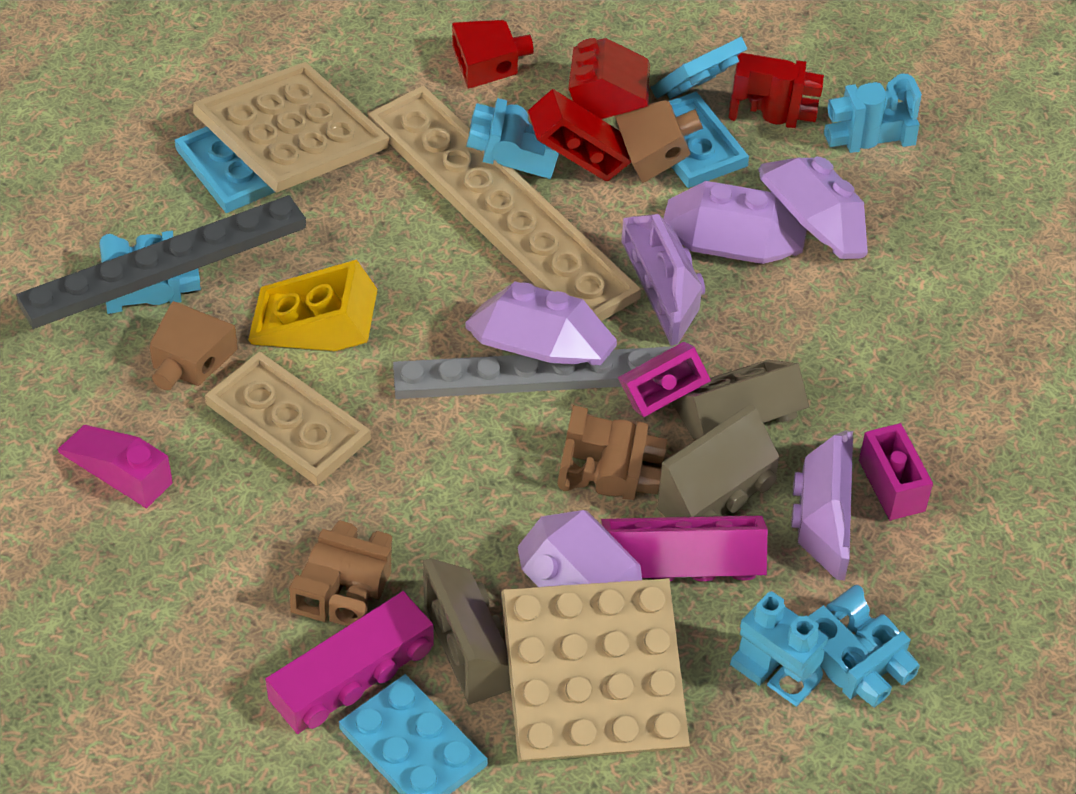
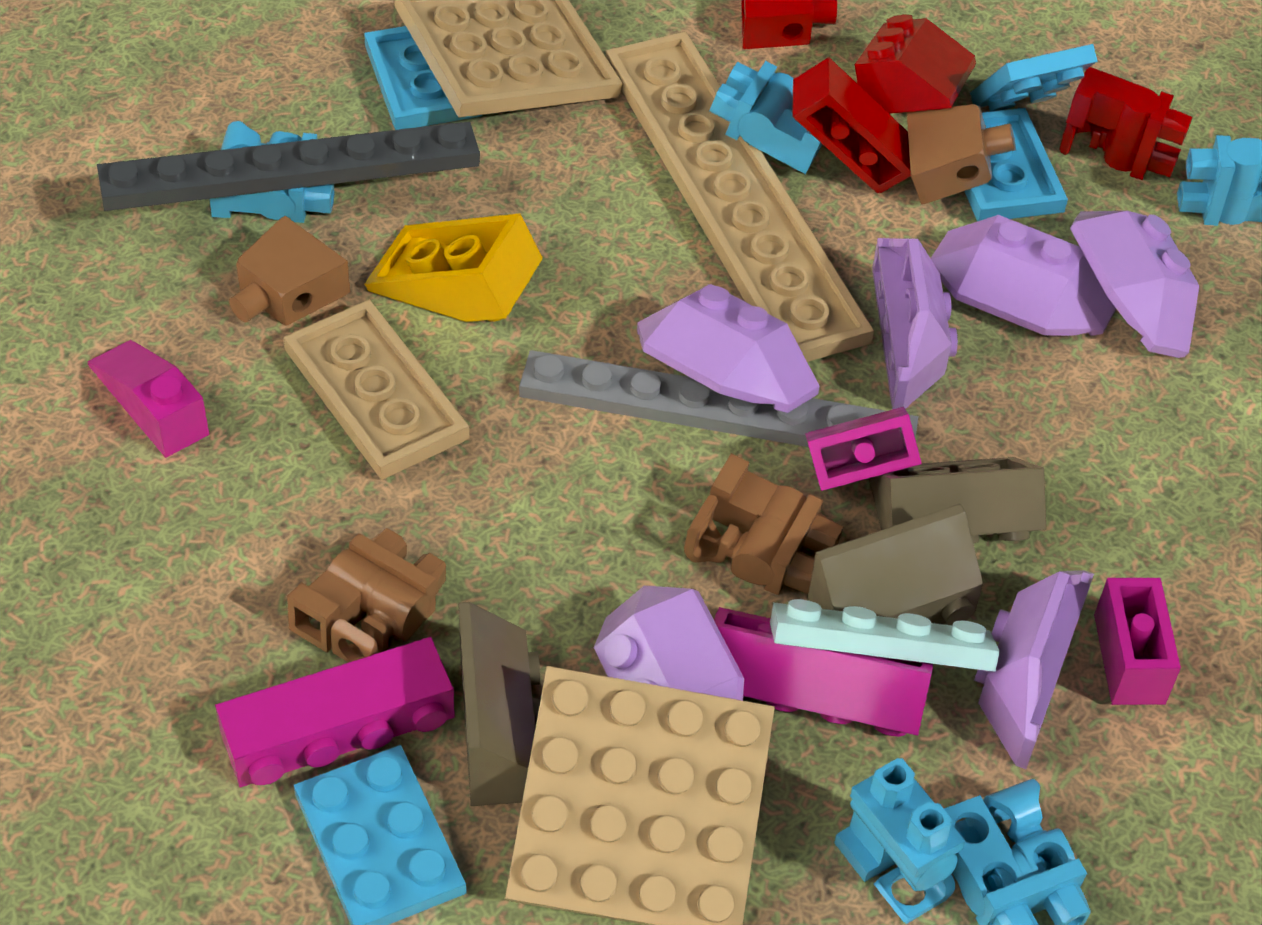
camera: 15 degrees right, 0 degrees up
(712, 511) = (865, 633): none -> light aqua plate

